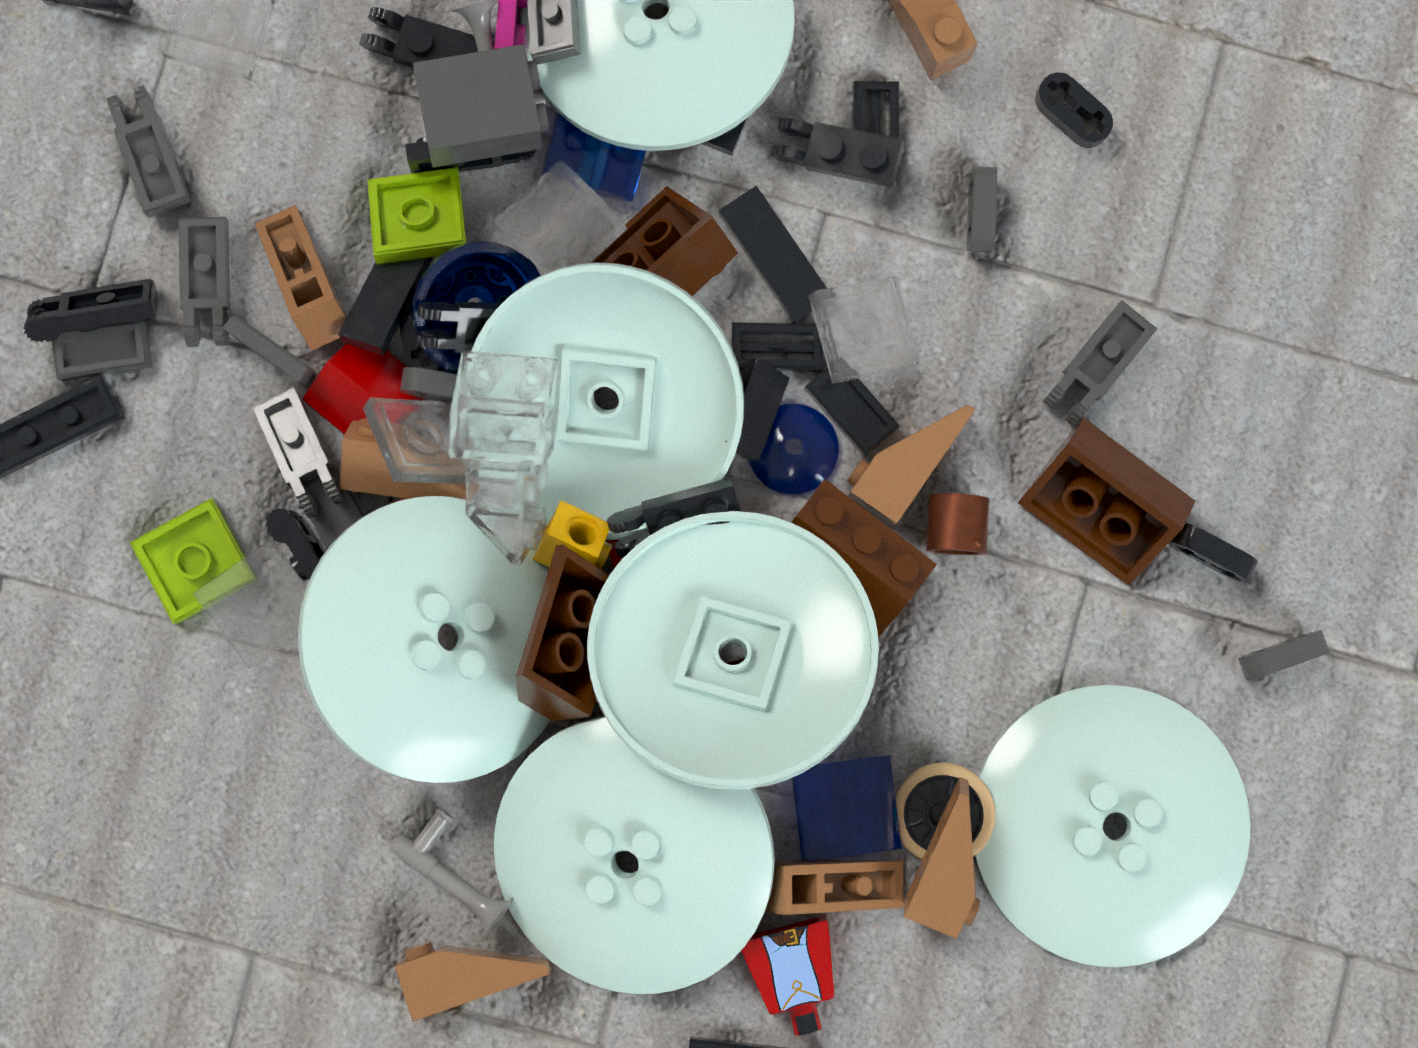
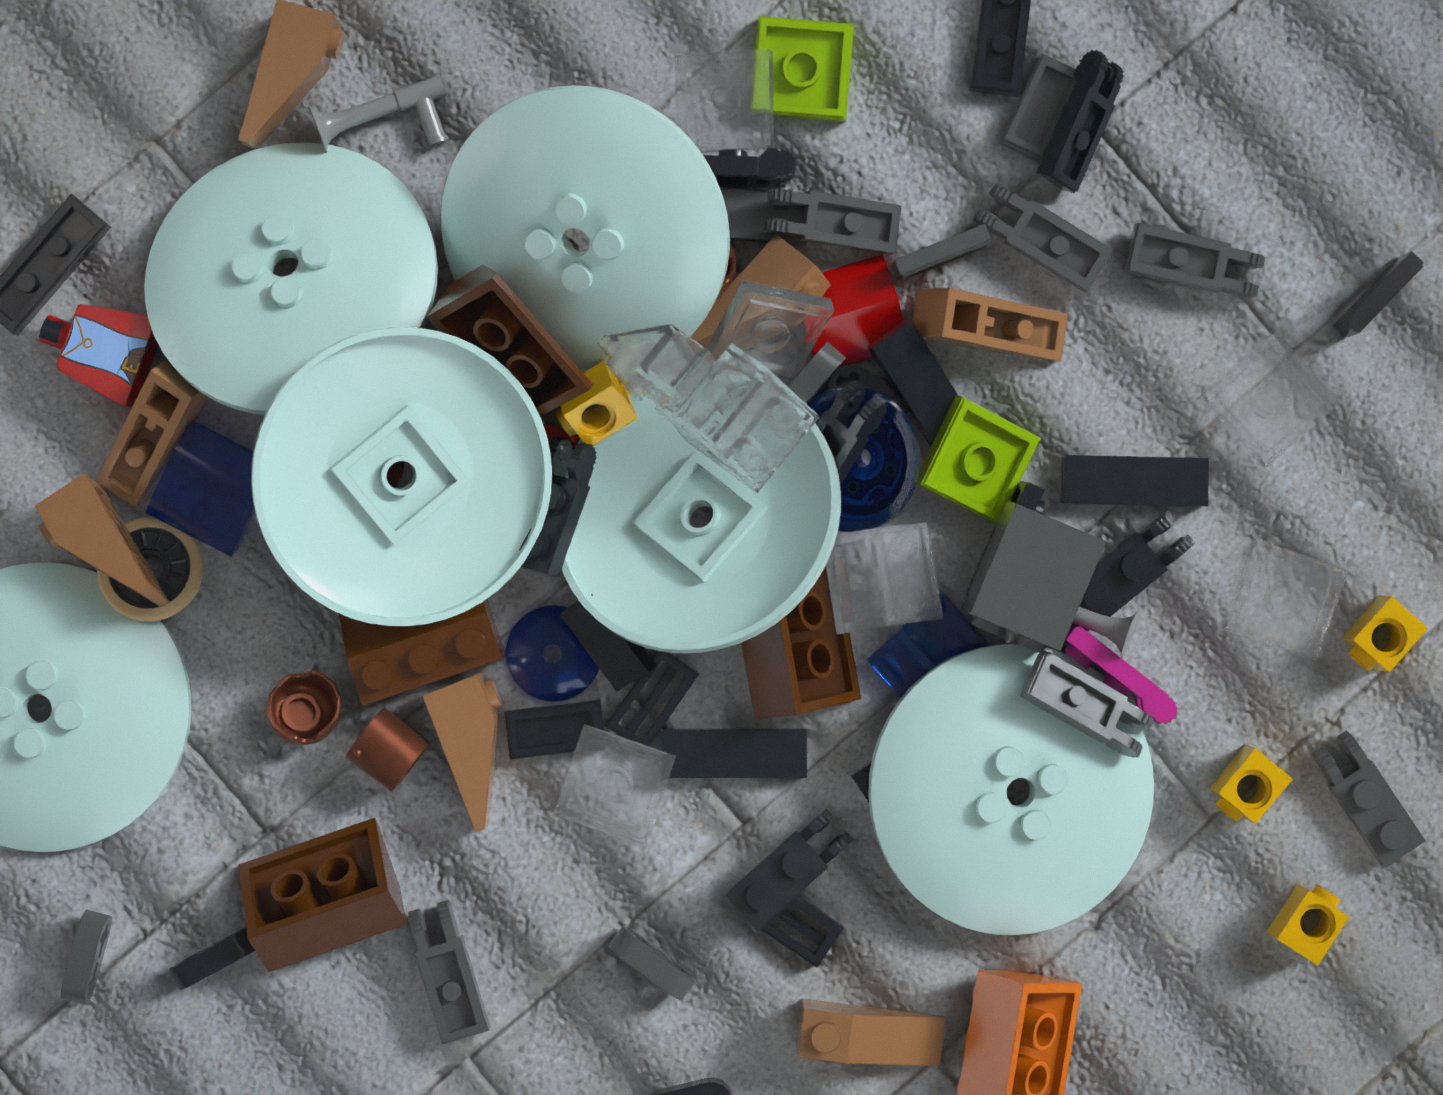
camera: 140 degrees right, 5 degrees up
(352, 86) = (1134, 480): none -> black tile
(969, 613) = (304, 707): none -> copper hair

